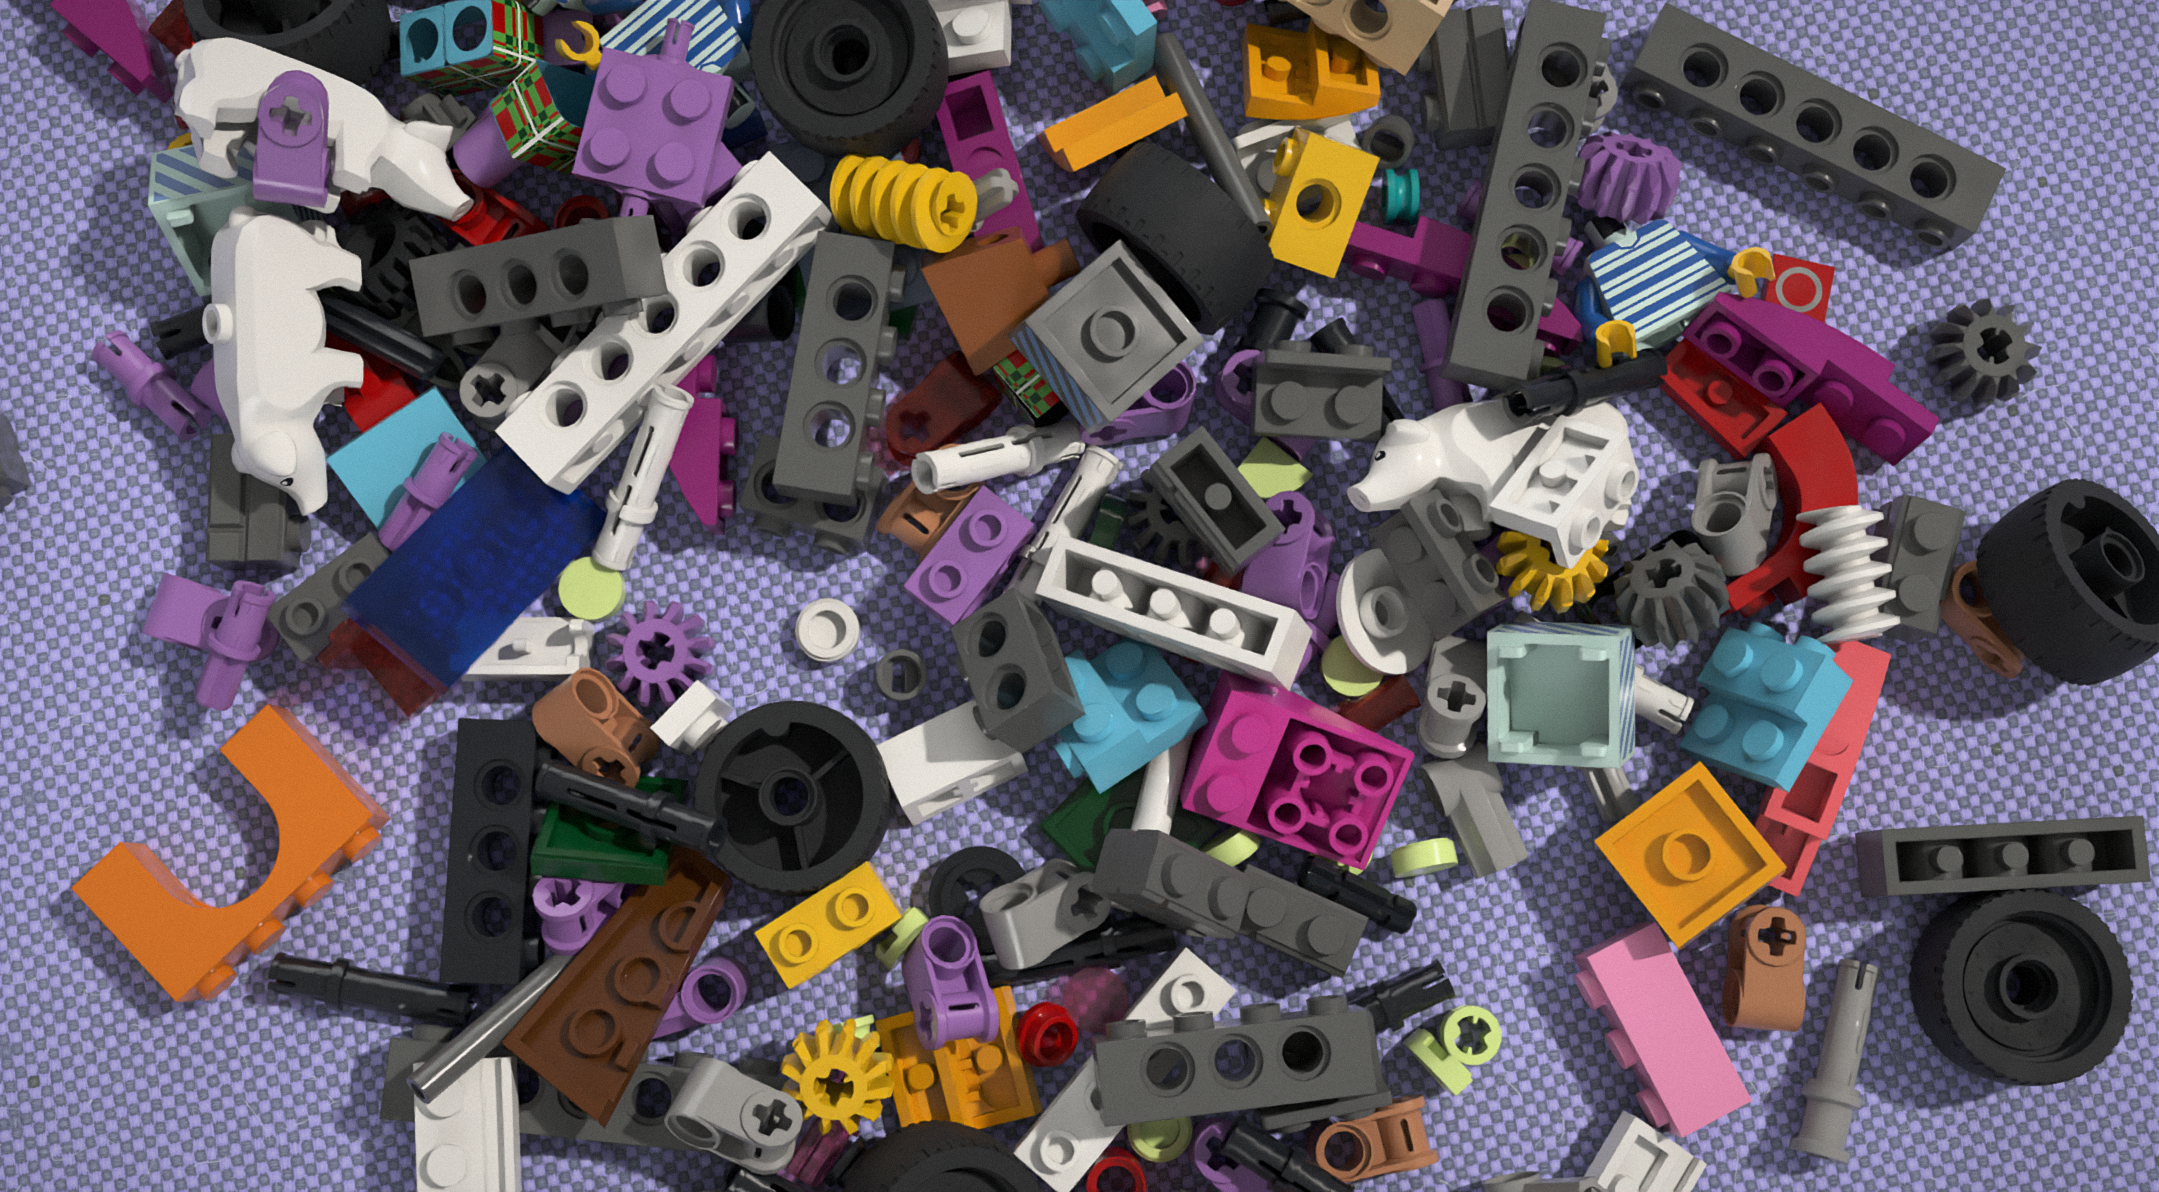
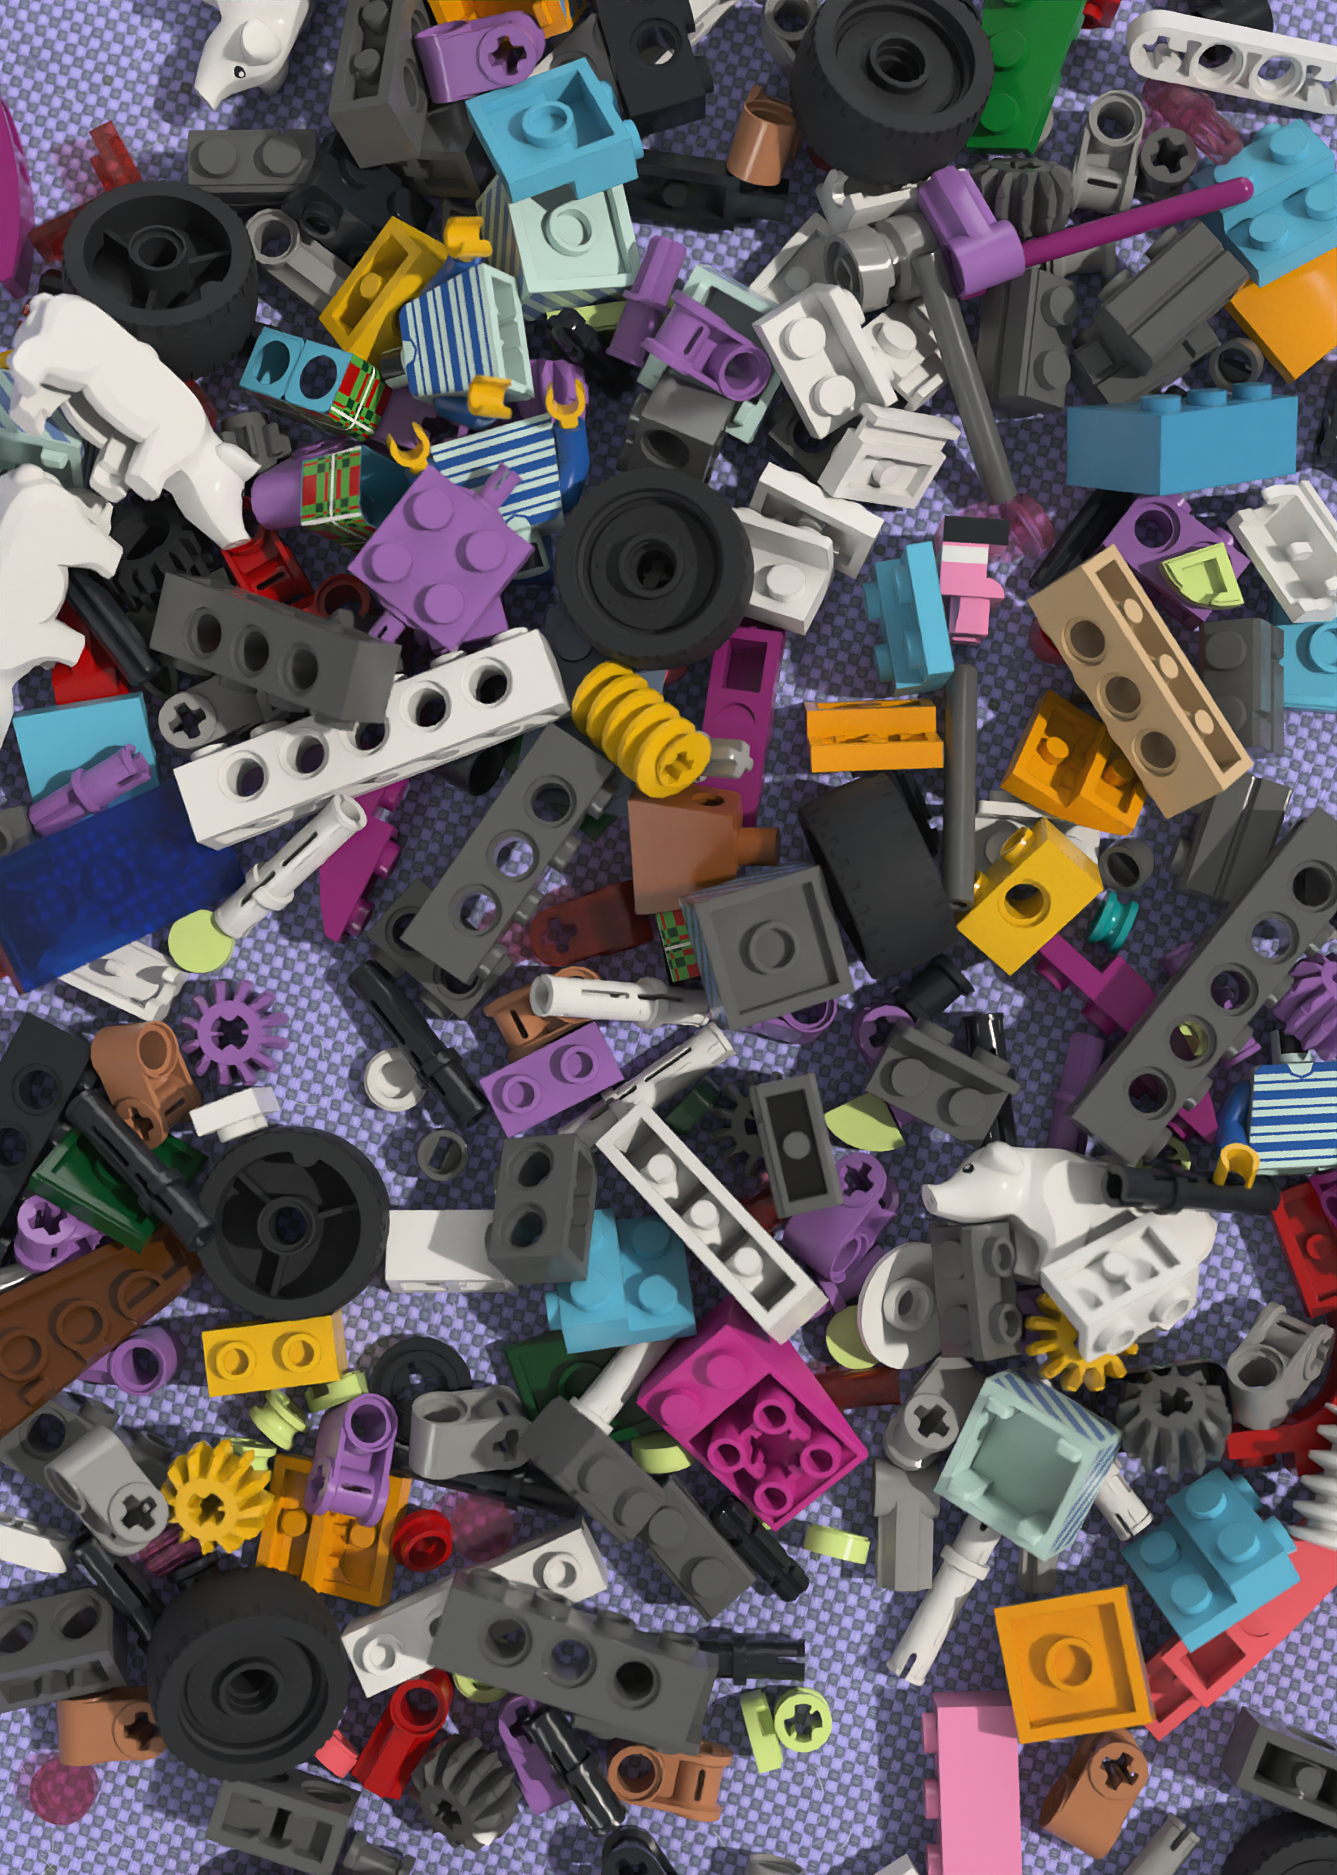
camera: 35 degrees right, 5 degrees up
(290, 152) = (98, 436): medium lavender piece -> none
(856, 596) = (434, 1063): none -> black pin
(863, 986) = (280, 1419): none -> yellowish green bush
(1546, 852) = (951, 1587): none -> white pin

